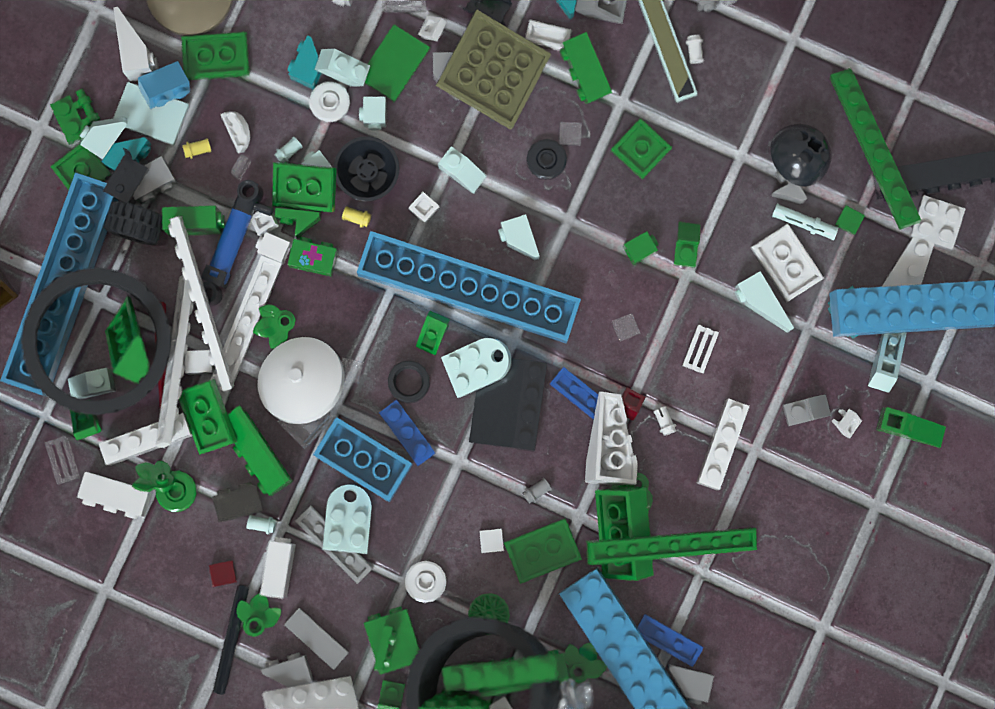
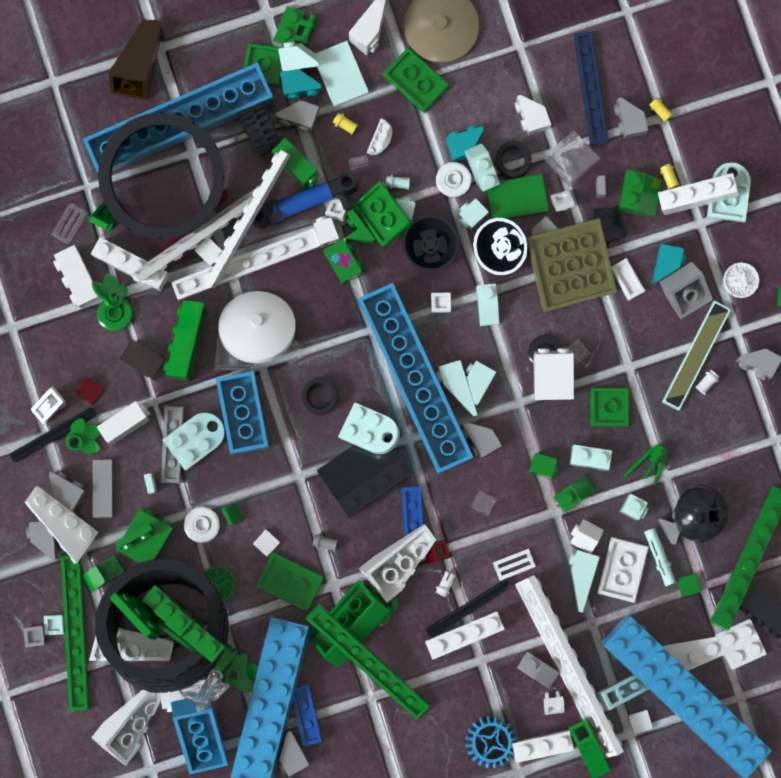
camera: 50 degrees right, 0 degrees up
(92, 383) = (134, 197): light aqua slope -> none
(126, 178) = (282, 97): black piece -> none
(126, 343) = (178, 195): green slope -> none
(164, 85) = (365, 65): dark azure brick -> none
(202, 620) = (48, 405): none -> white slope
(207, 417) = (178, 289): green tile -> none
(261, 524) = (143, 387): light aqua pin -> none
(271, 325) = (274, 275): green plate -> none
(350, 593) = (150, 483): none -> light aqua tile
(356, 216) = (395, 265): light yellow pin -> none
(359, 20) = (518, 146): none -> black tyre
(407, 433) = (286, 425): blue plate -> none
(416, 120) = (492, 247): none -> piece
(432, 332) = (365, 382): green slope -> none
(441, 547) = (232, 514): none -> green slope
(503, 257) = (455, 382): none -> light aqua slope
(570, 278) = (482, 438): none -> light grey slope
(572, 169) = (553, 374): none -> white brick
(585, 68) = (627, 323): green brick -> none
(669, 203) = (590, 457): none -> light aqua brick
(701, 421) = (468, 608): none -> black axle
(719, 146) = (657, 456): none -> green plant
(732, 266) = (586, 536): none -> white brick
(744, 205) = (634, 507): none -> light aqua brick
(826, 380) = (568, 665): none -> white plate
(836, 513) = (483, 757): none -> dark azure gear
(874, 464) = (542, 746): none -> white brick
(927, 364) = (640, 722): none -> white tile

